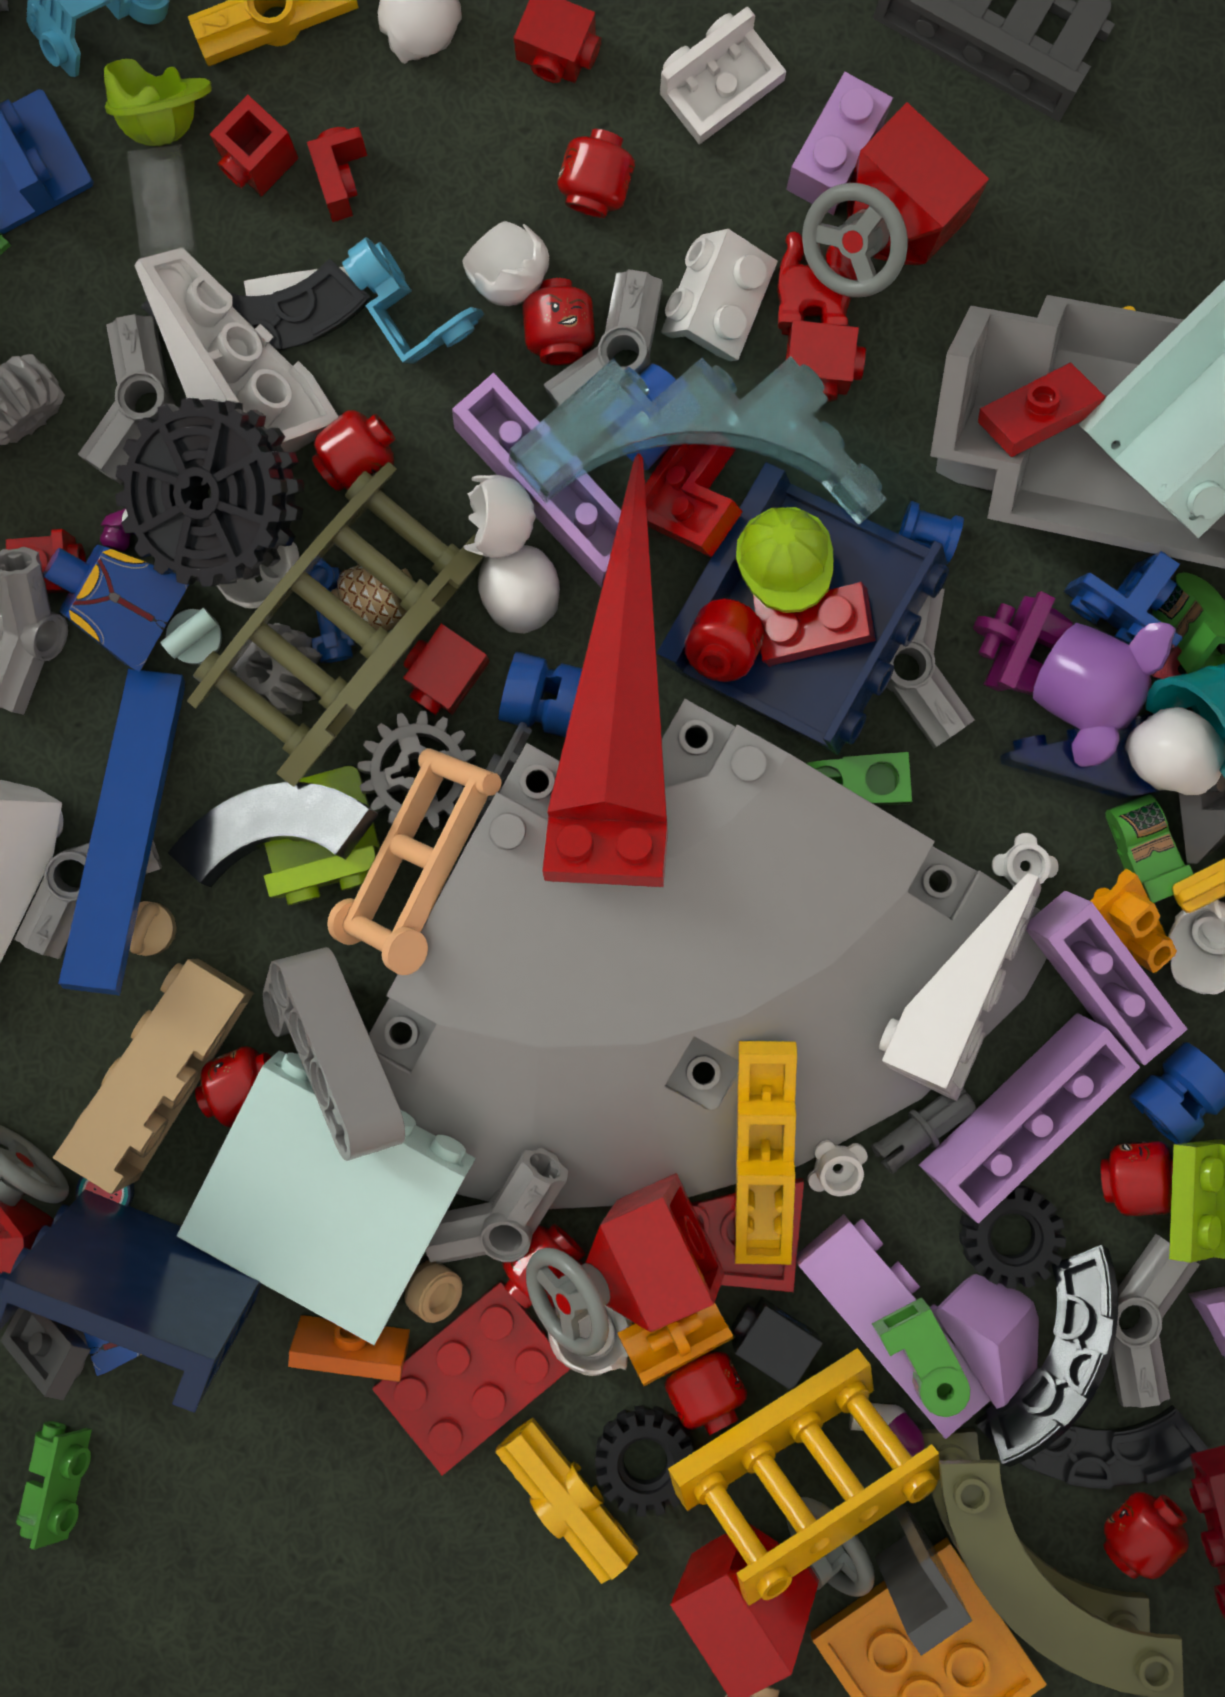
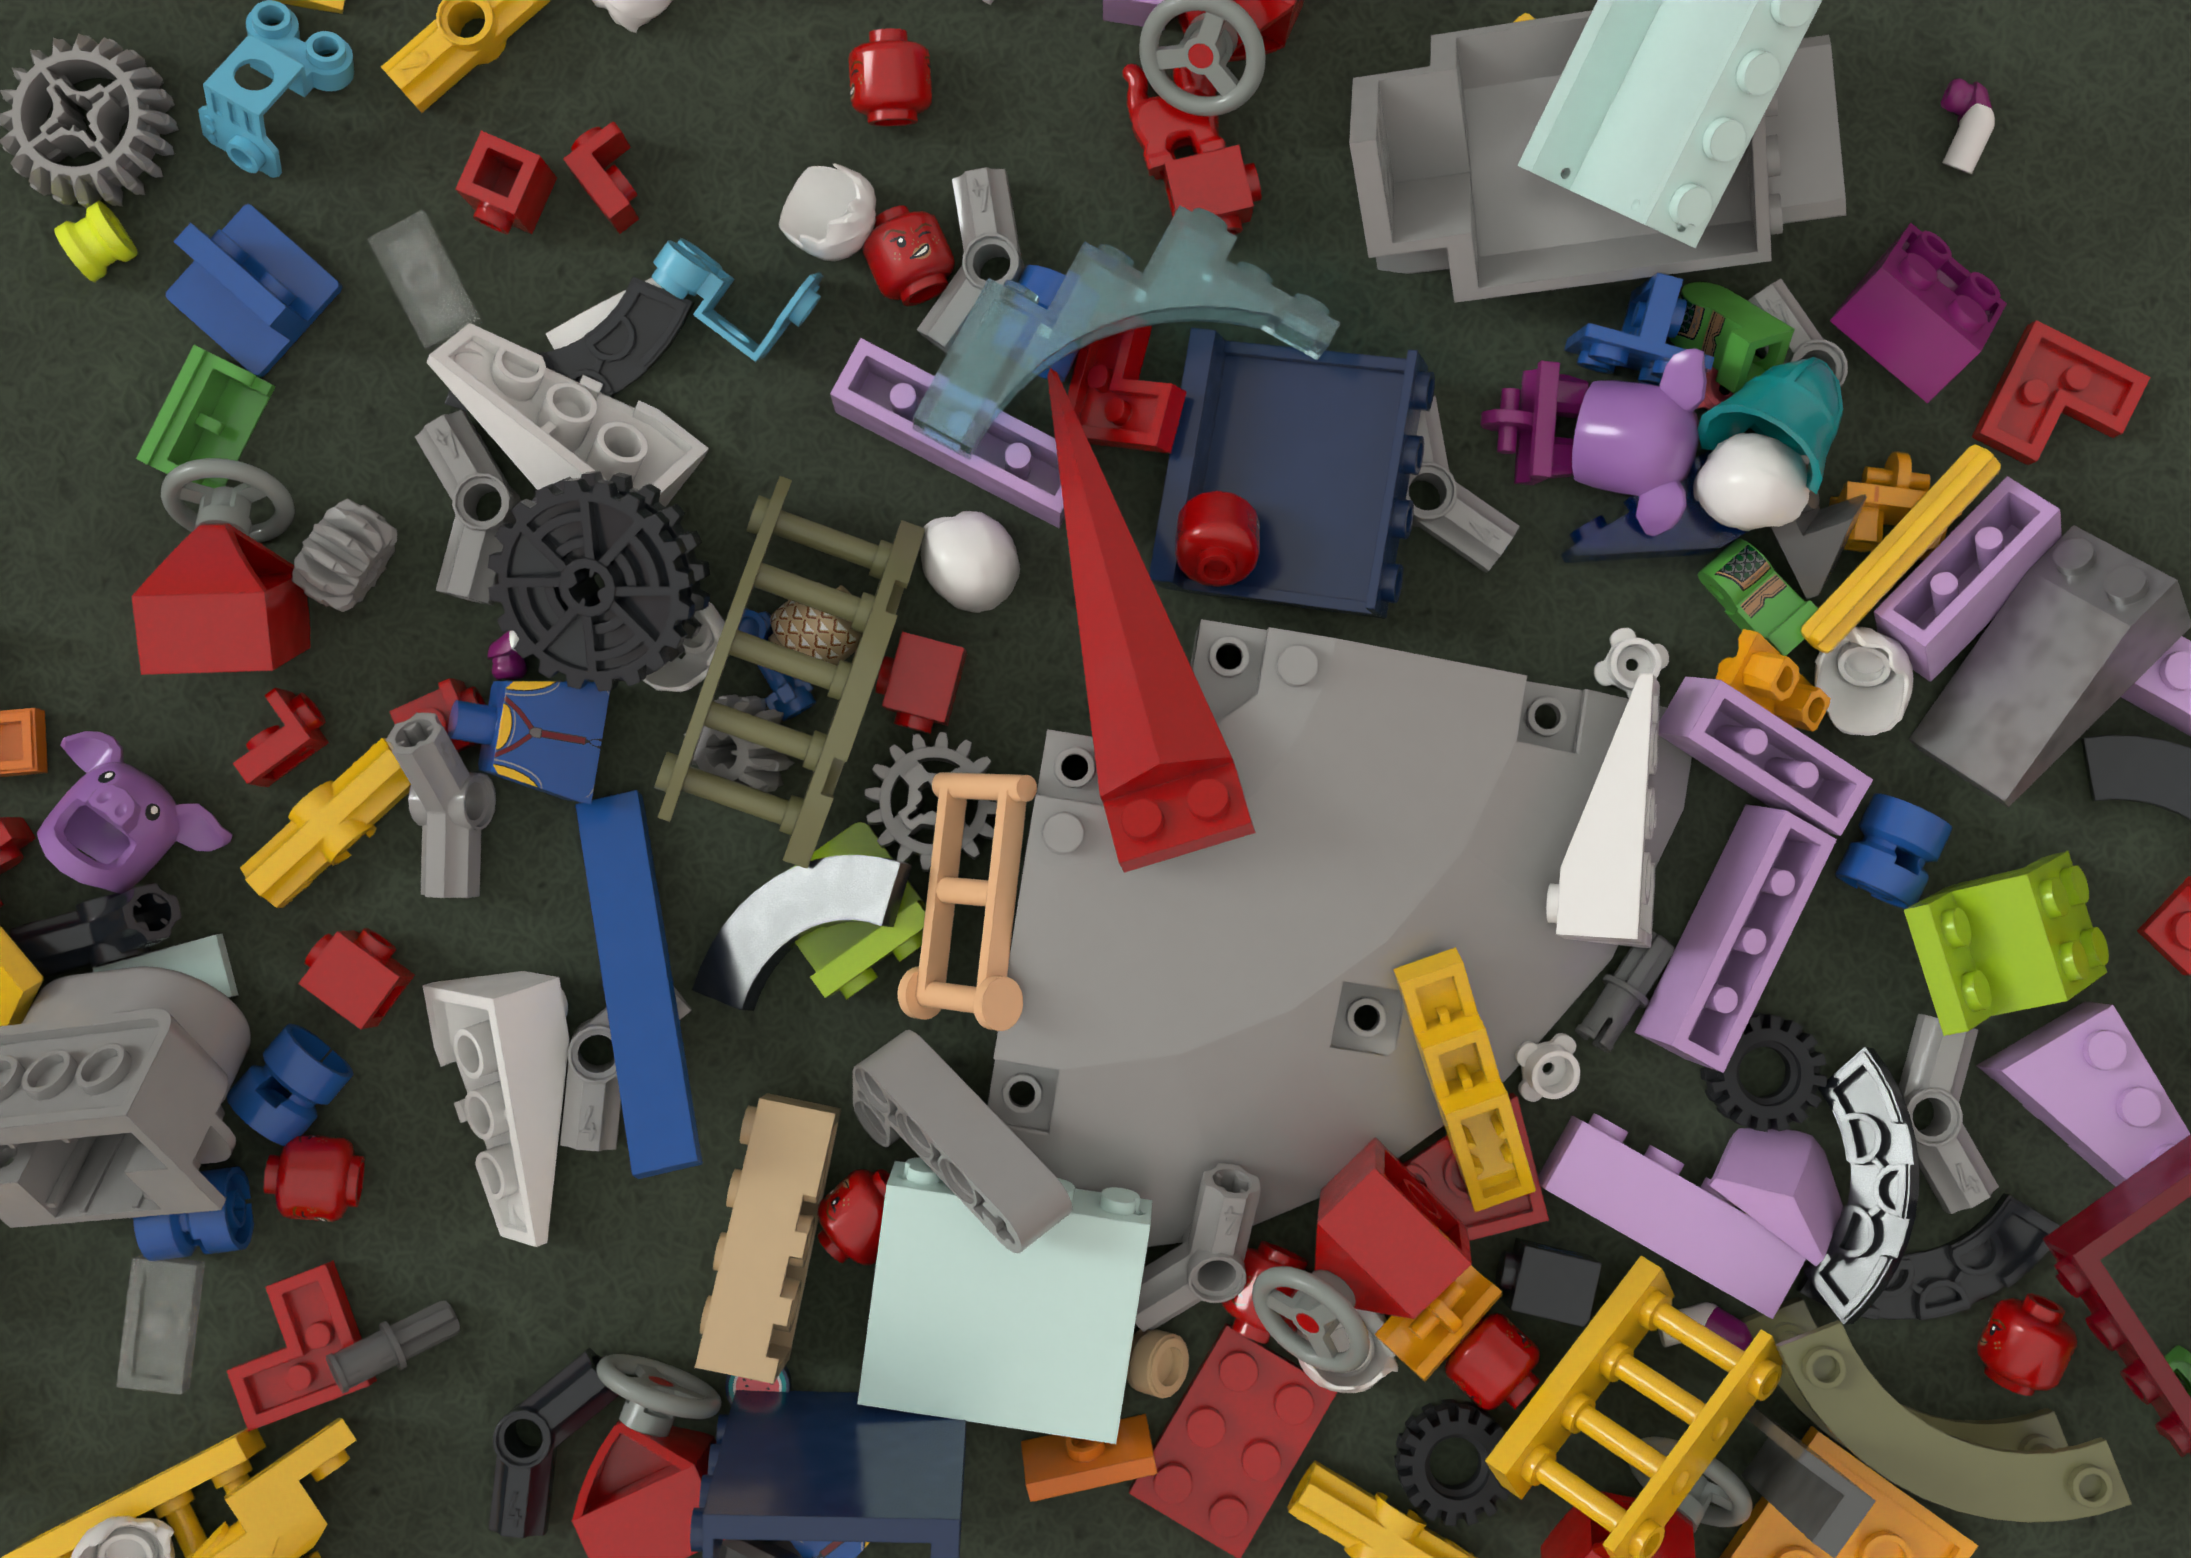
camera: 15 degrees left, 0 degrees up
(150, 106) = (376, 179): lime piece -> none
(153, 929) = (708, 1078): tan tile -> none
(192, 636) = (633, 743): light aqua plate -> none
(351, 447) = (734, 475): red head -> none
(501, 514) = (926, 490): white hair -> none
(504, 764) = (1028, 758): dark grey wheel -> none
(525, 689) = (1018, 669): blue wheel -> none
(719, 293) = (1071, 160): white bracket -> none
(786, 559) = (1253, 426): lime piece -> none
(835, 623) = (1289, 487): plate -> none
(875, 777) = (1431, 630): bright green leg -> none
(929, 527) = (1396, 335): blue bush -> none
(936, 1371) = (1736, 1248): bright green leg -> none
(1040, 409) = (1470, 164): red plate -> none
(1138, 1178) = (1878, 960): red head -> none

